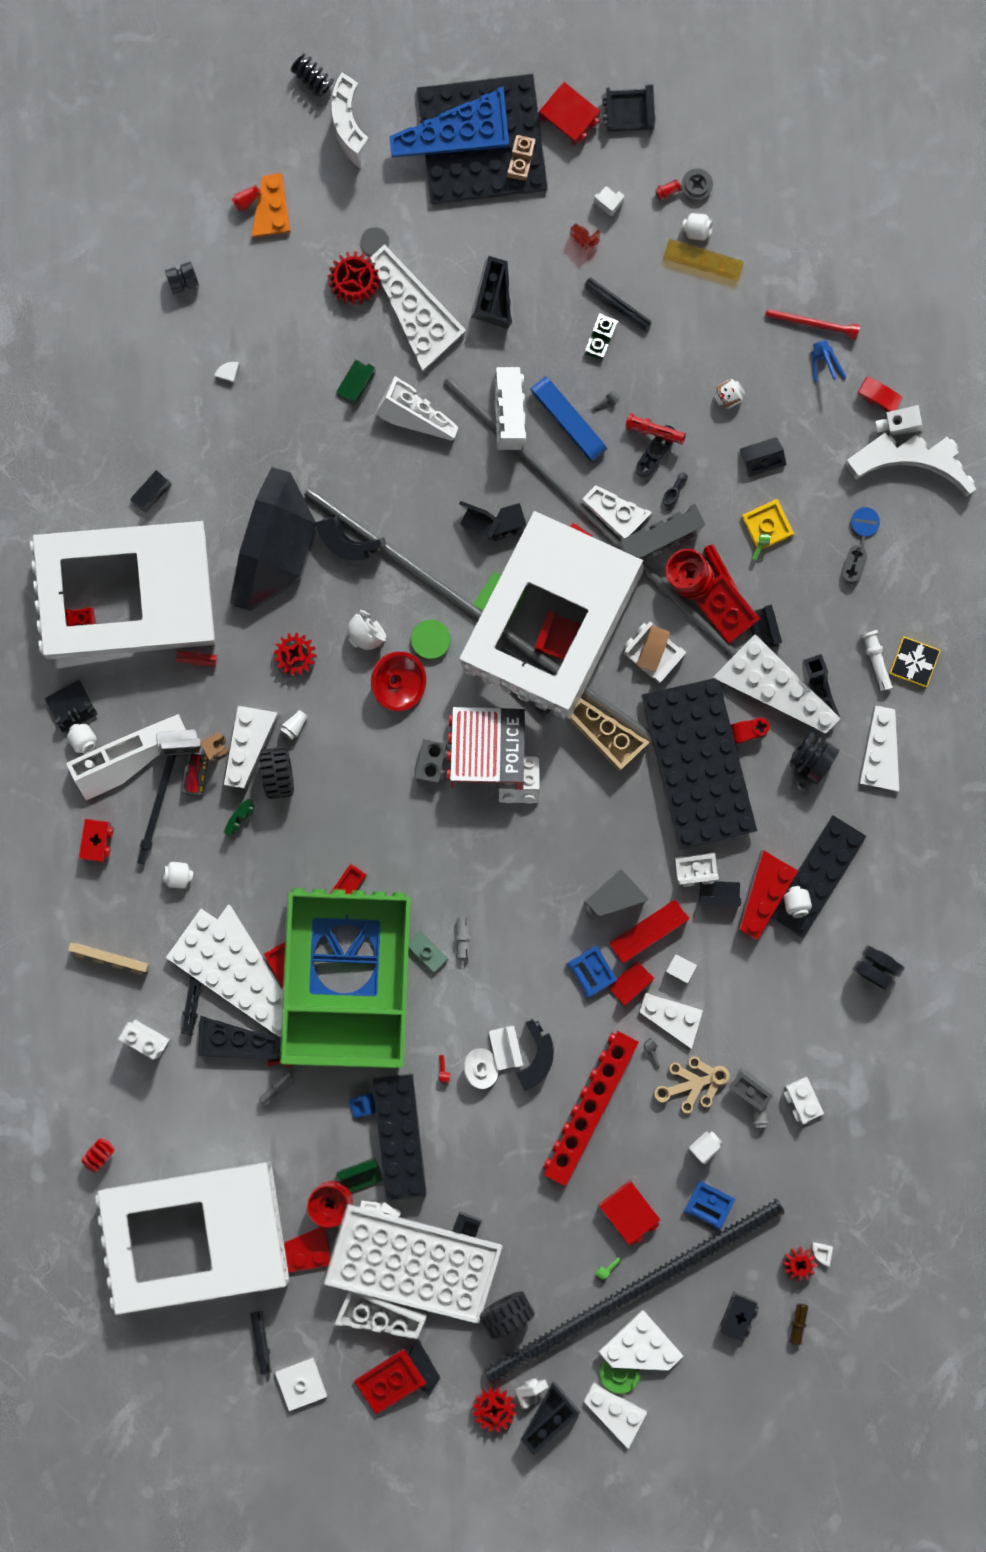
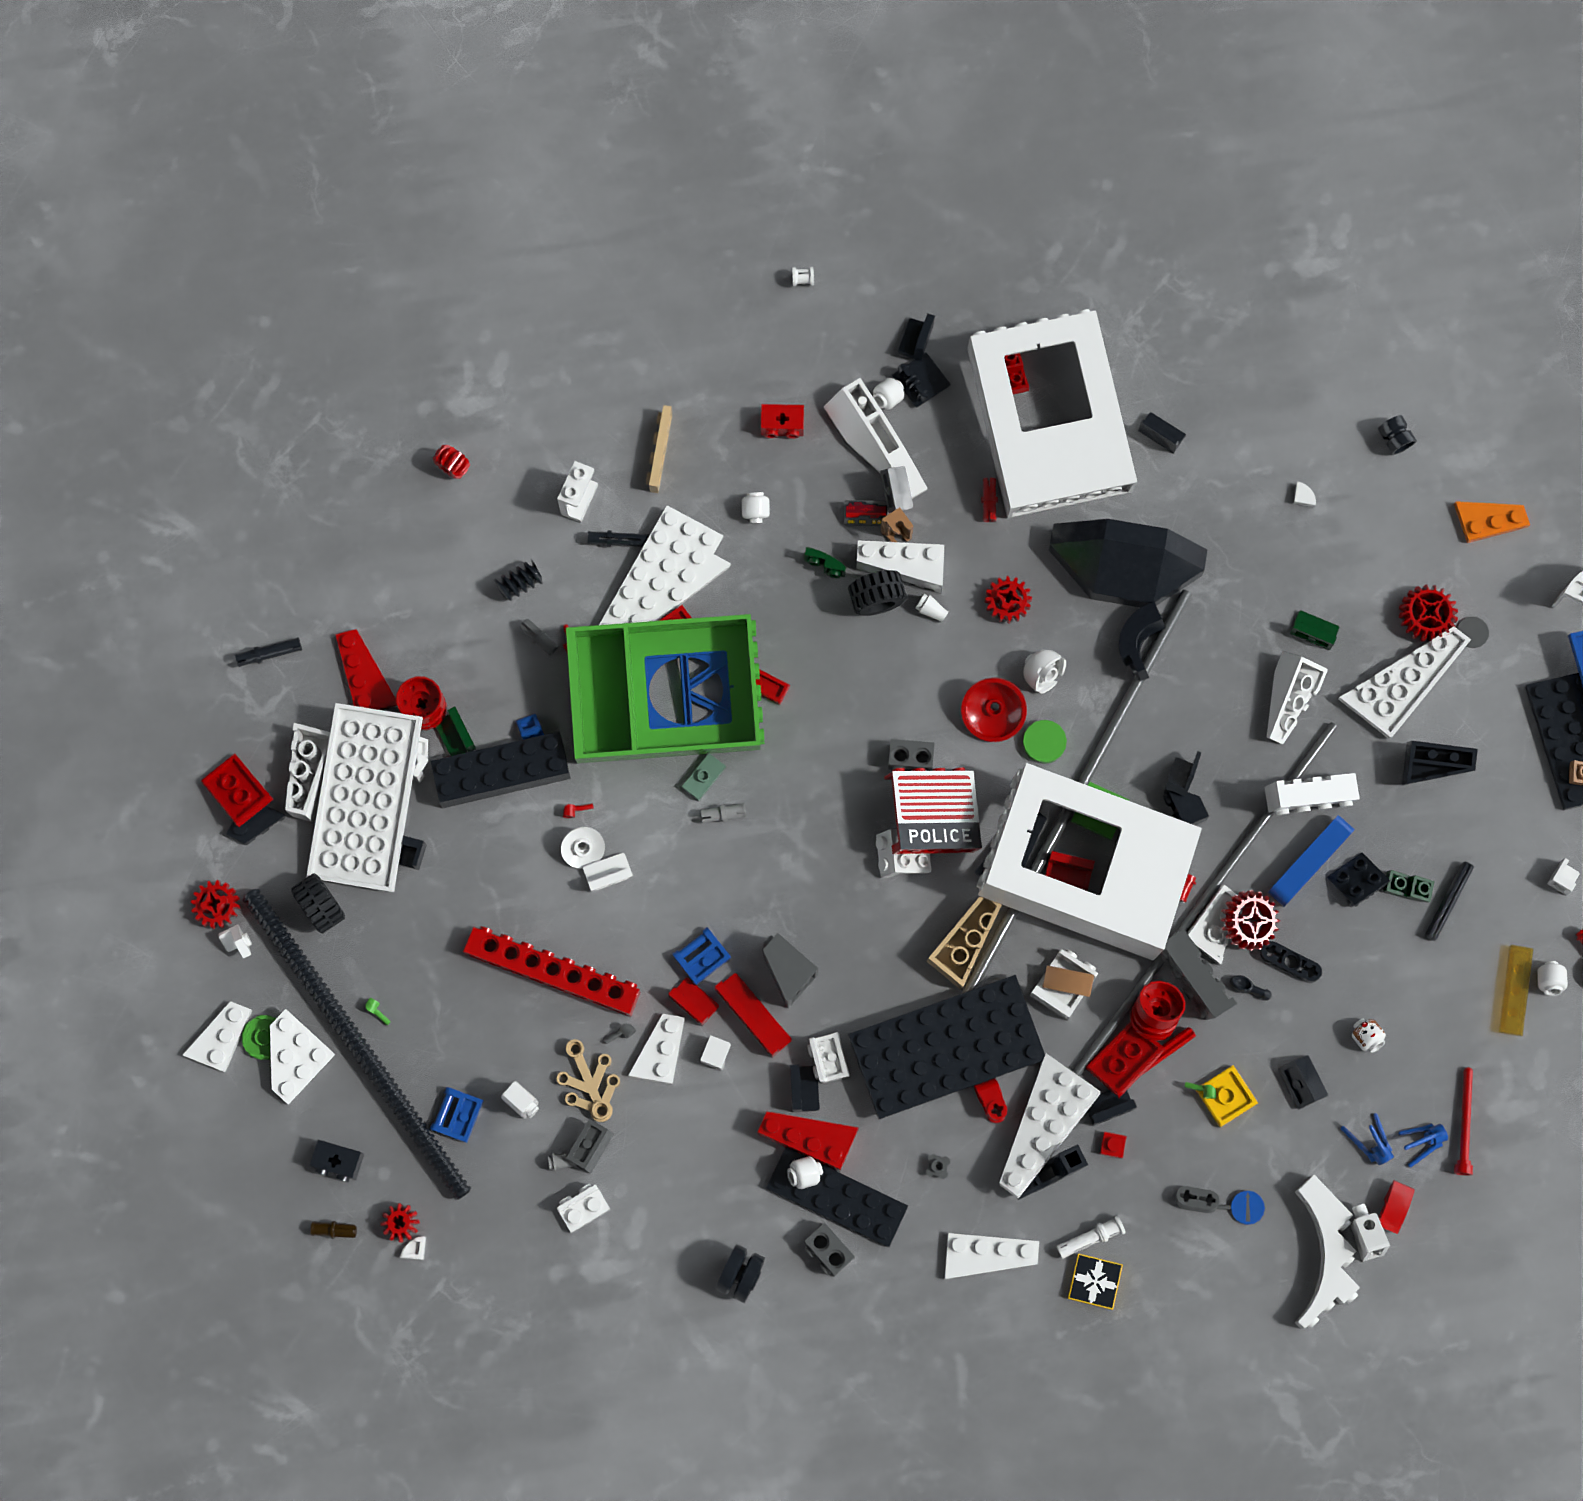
camera: 85 degrees right, 10 degrees down
(29, 705) = (916, 337): none -> black panel
(146, 843) = (785, 473): black bar -> none
(221, 1102) = (519, 580): none -> black piece
(232, 1041) = (585, 582): black wing -> none
(240, 1228) = (384, 613): white panel -> none
(246, 198) = (1494, 489): red cone -> none
(301, 1384) = (227, 699): white plate -> none
(539, 1068) = (601, 914): black arch -> none
(550, 1418) = (208, 964): black wedge -> none
(582, 236) = (1520, 851): clear red bracket -> none
(590, 380) = (1358, 879): none -> black hinge
(607, 484) = (1250, 900): none -> red gear
(612, 397) = (1343, 906): dark grey hand -> none
(630, 1212) = (440, 1027): red panel -> none
(646, 427) = (1315, 949): red pin -> none
(799, 629) = (1113, 1145): none -> red plate
(813, 757) = (970, 1173): black wheel -> none
(830, 399) = (1381, 1151): none -> blue plant
(861, 885) = (834, 1245): none -> dark grey brick

